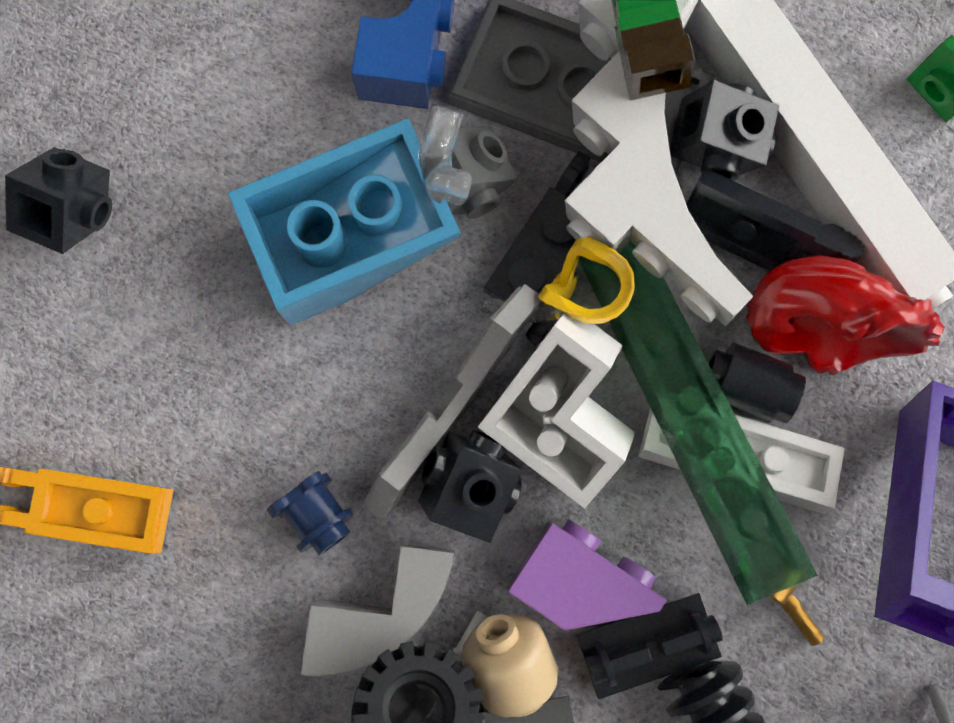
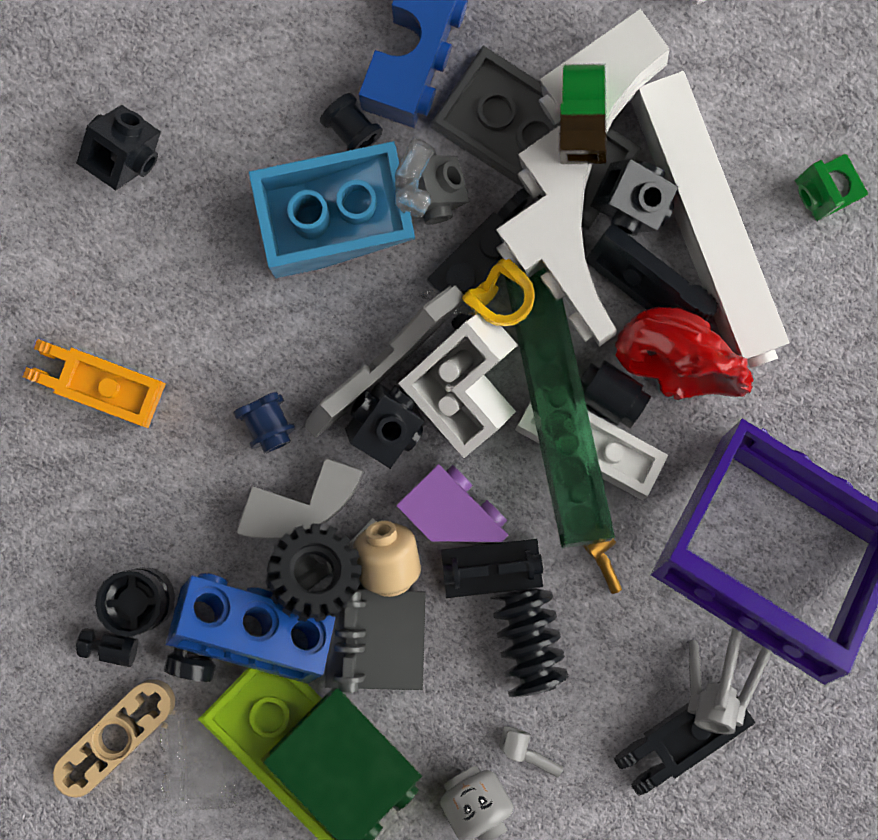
camera: 10 degrees right, 5 degrees up
(345, 112) = (350, 123): none -> black bush

